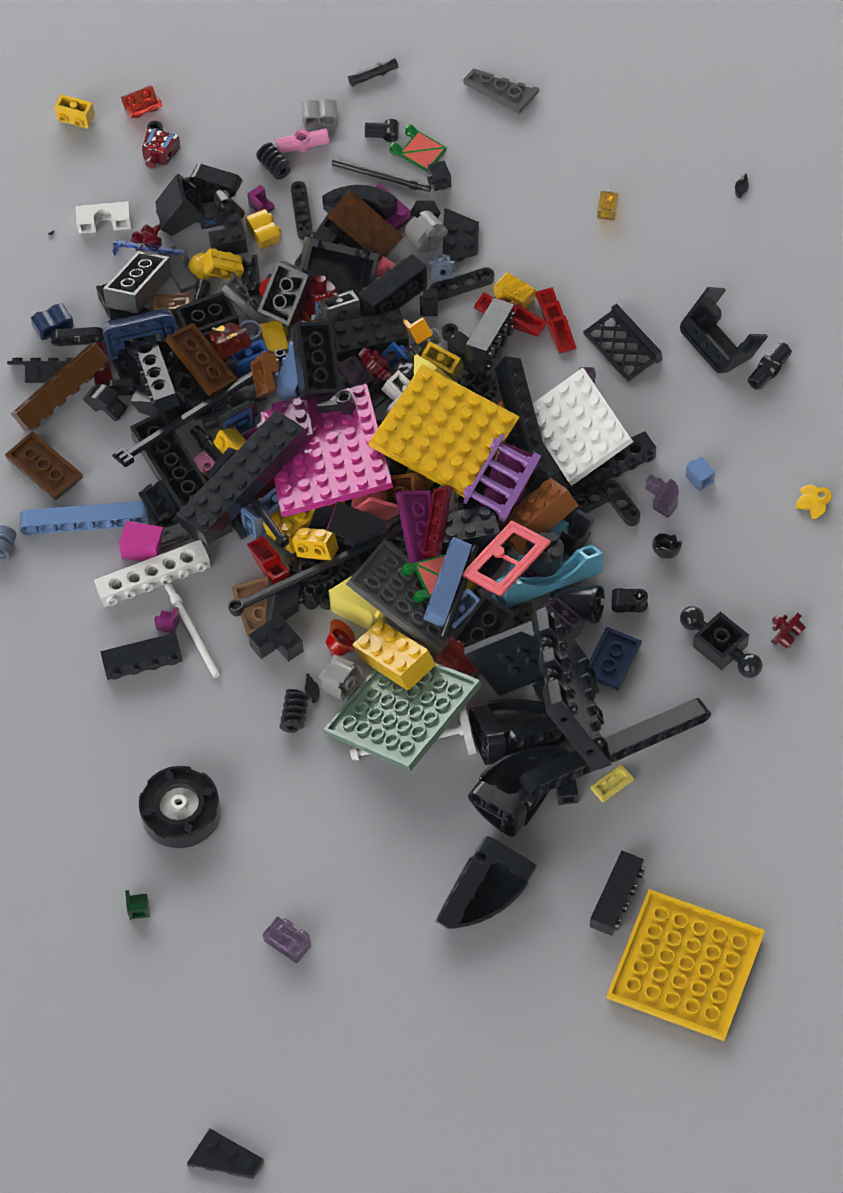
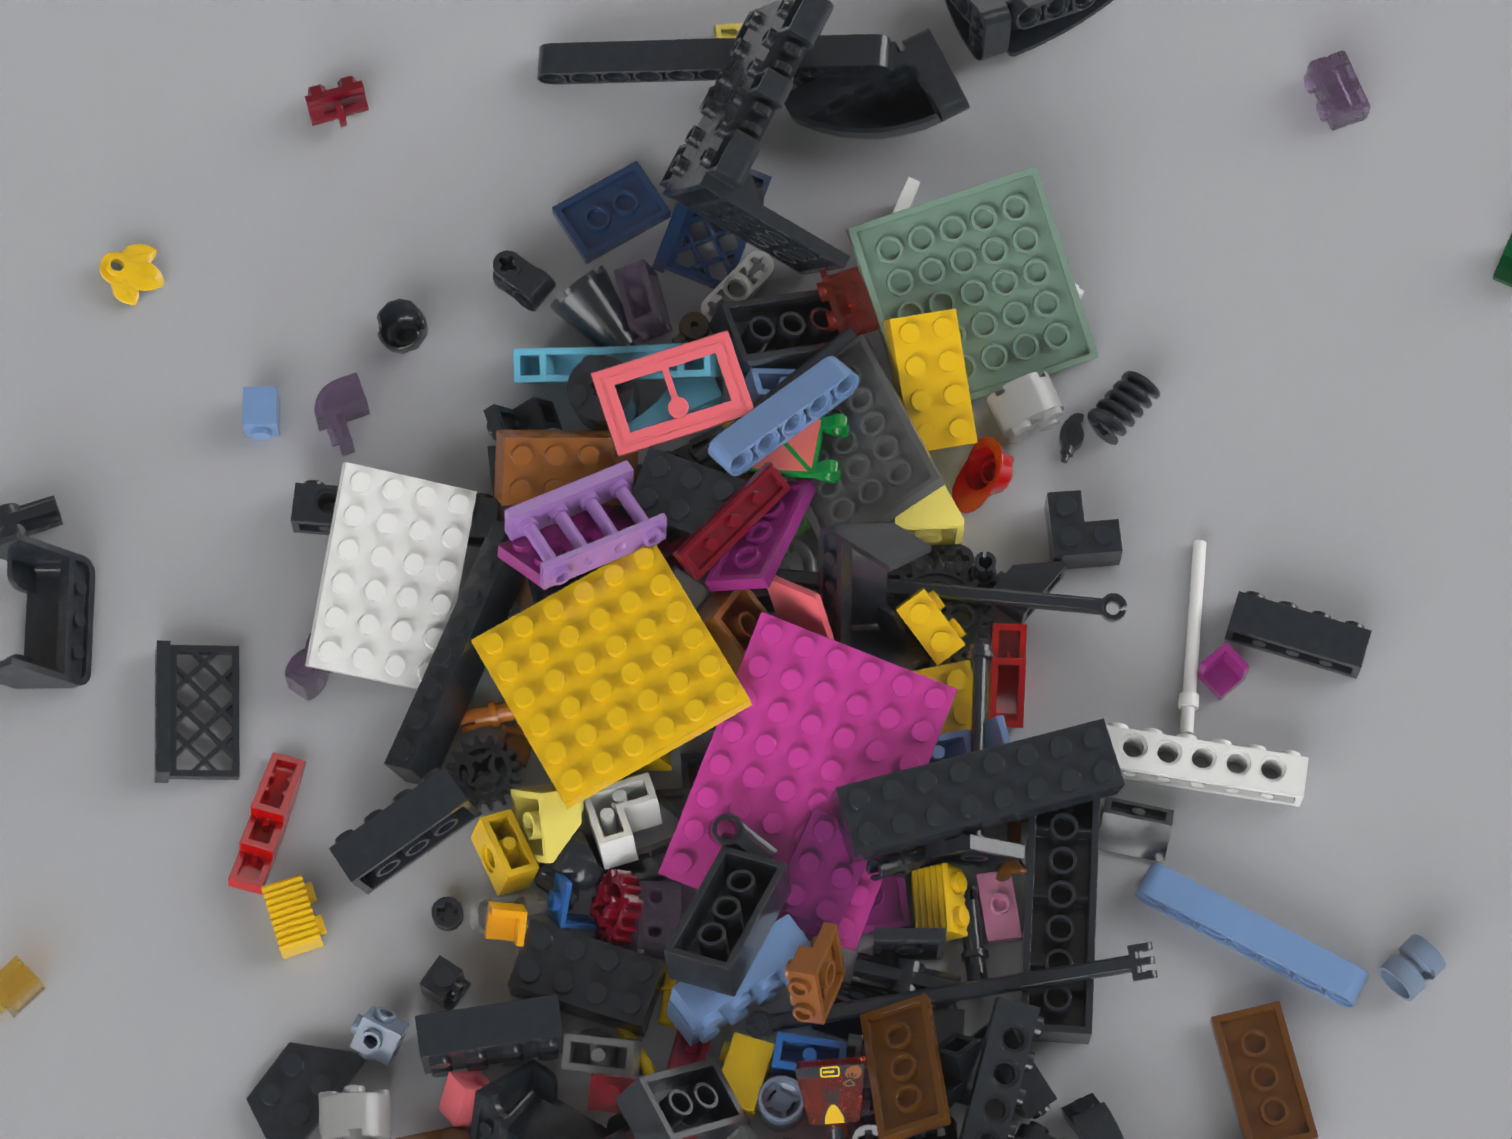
camera: 150 degrees left, 10 degrees up
(140, 541) = (1189, 818): dark pink slope -> none
(159, 502) = (1122, 875): black hinge -> none
(179, 807) = (1379, 357): black piece -> none
(256, 614) = (1075, 635): medium nougat wing -> none
(457, 345) = (452, 866): black brick -> none
(462, 286) = (364, 990): black beam -> none
(512, 726) = (827, 178): black panel -> none
(524, 319) = (330, 881): red slope -> none
(611, 497) = (417, 460): black beam -> none
(721, 641) = (444, 135): black brick -> none

